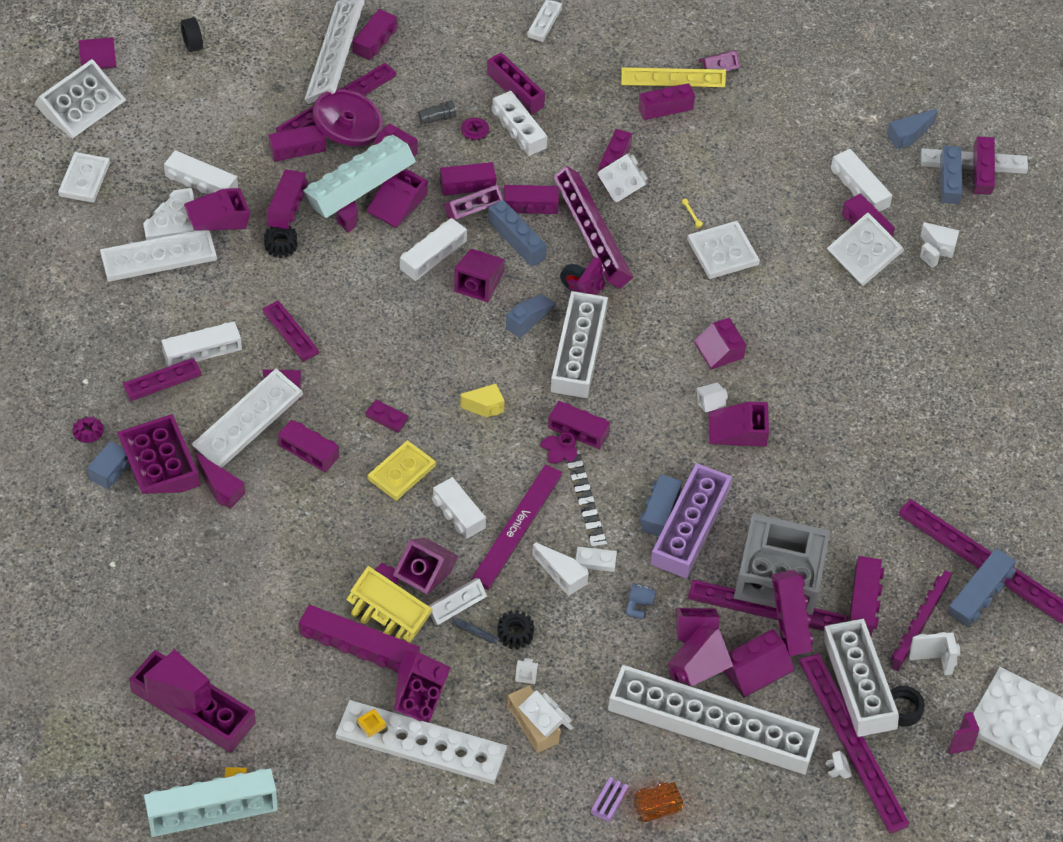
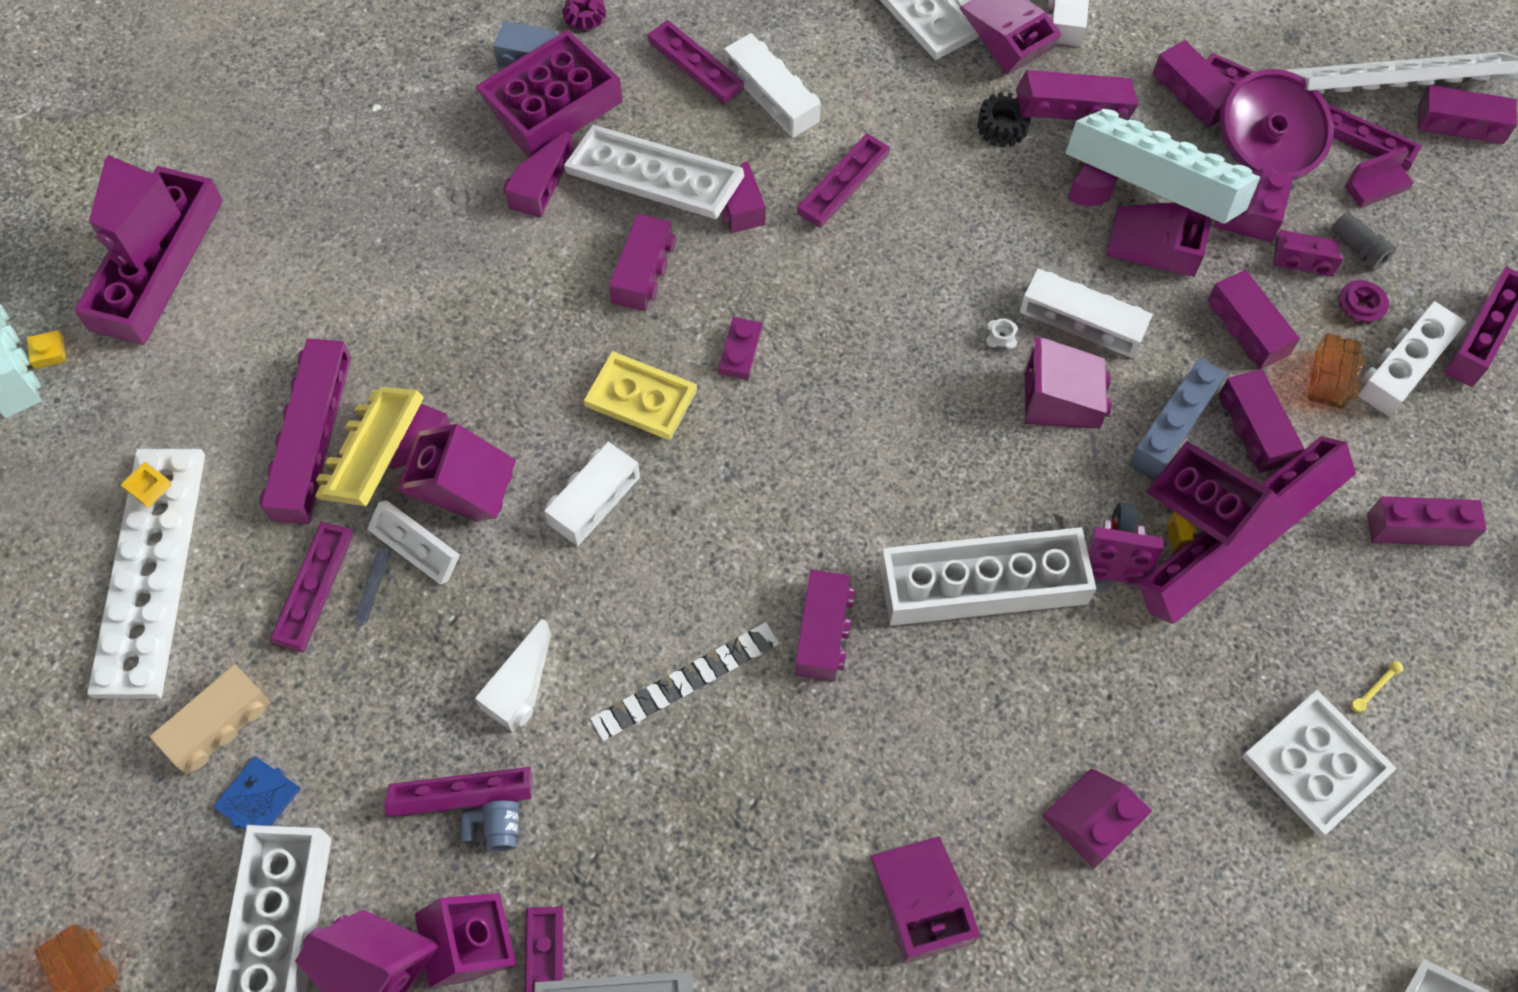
camera: 75 degrees right, 10 degrees up
(400, 90) = (1379, 178): none -> magenta panel
(419, 685) = (229, 530): magenta slope -> none
(429, 287) = (1005, 327): none -> white plate
(434, 139) = (1307, 253): none -> magenta bracket
(463, 660) = (311, 587): none -> magenta tile
(473, 202) = (1202, 337): magenta brick -> none
(483, 401) = (817, 471): light yellow slope -> none
(514, 157) = (1336, 371): none -> clear orange brick
(517, 526) = (591, 590): magenta tile -> none
(518, 620) = (369, 630): black tyre -> none
(526, 671) = (303, 682): white tile -> none
(527, 314) = (1024, 485): sand blue slope -> none
(545, 713) = (210, 736): white bracket -> none
(558, 449) = (765, 609): magenta plate -> none
(578, 228) = (1219, 498): none -> magenta slope
(582, 256) = (1179, 531): none -> yellow plate
(584, 709) = (257, 795): none -> blue piece
(596, 558) = (562, 731): white plate -> none
(616, 609) = (458, 791): none -> magenta plate
(616, 785) = (54, 881): lavender tile -> none
(623, 177) = (1385, 545): white bracket -> none
(660, 504) = (699, 806): sand blue brick -> none
(691, 520) = (676, 867): lavender brick -> none
(711, 397) = (966, 831): white brick -> none

